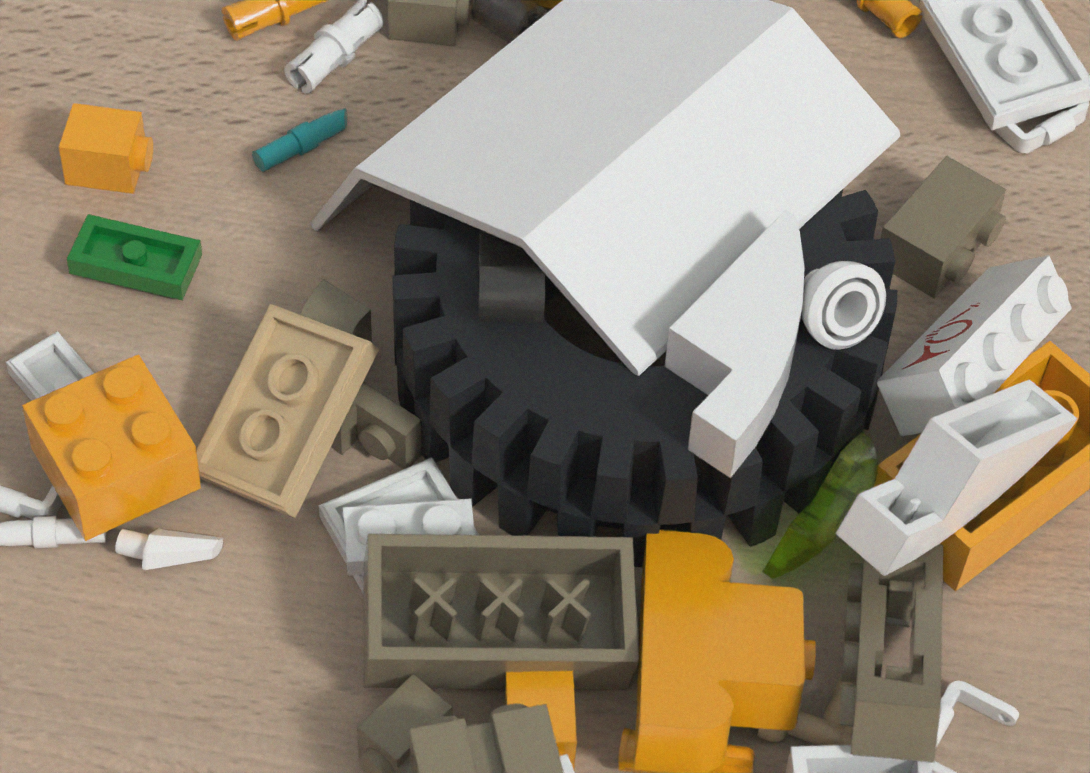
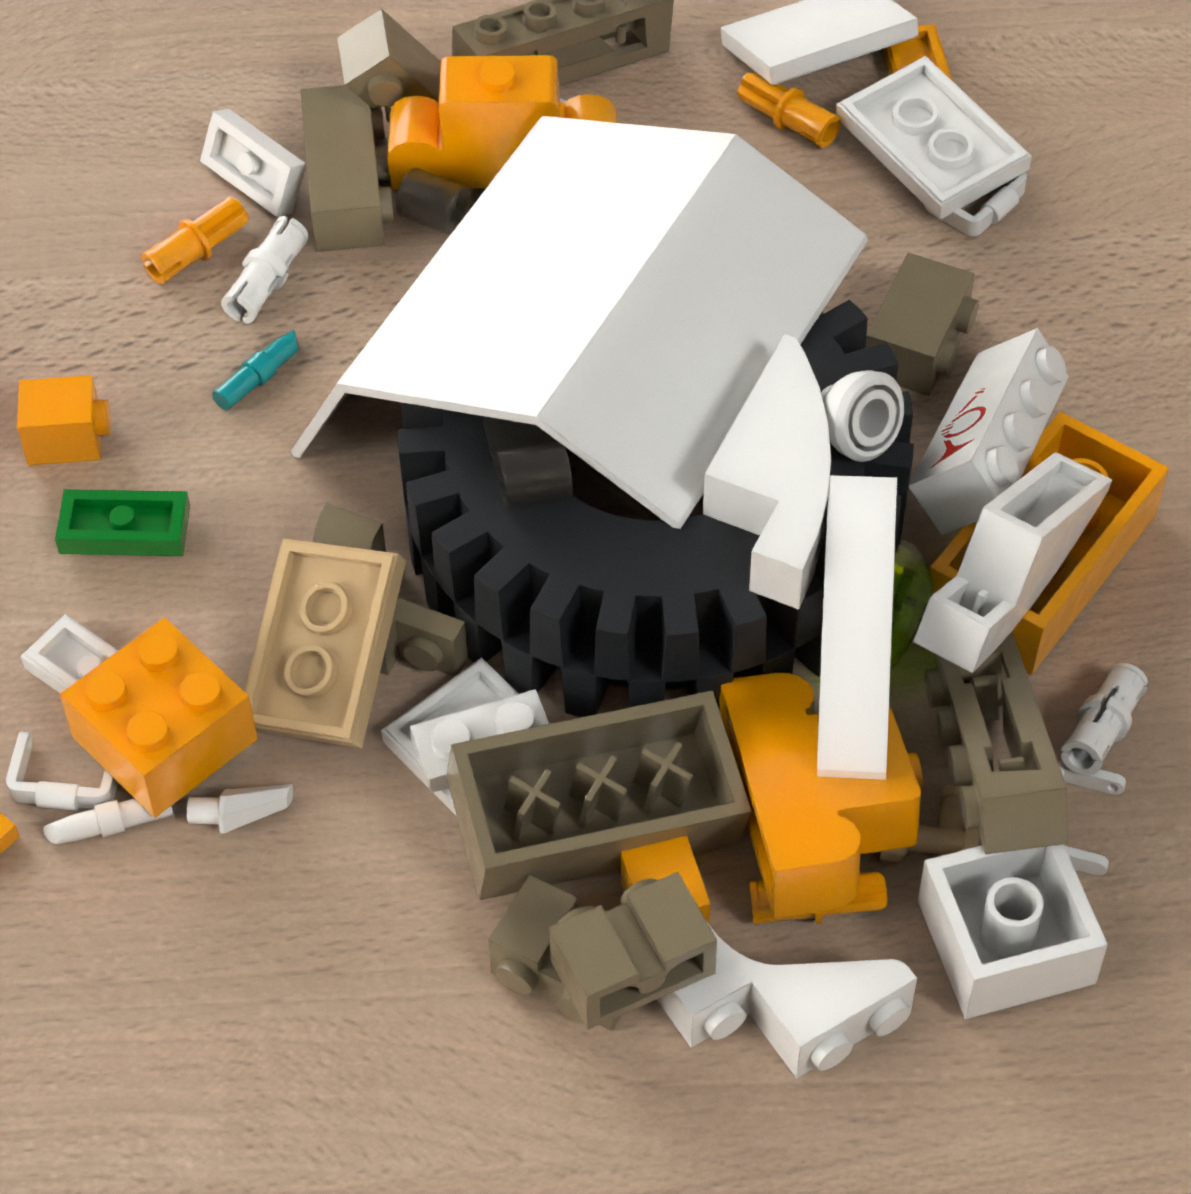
camera: 10 degrees left, 0 degrees up
(782, 508) = (857, 627): none -> white slope
(1012, 649) = (1104, 719): none -> white pin

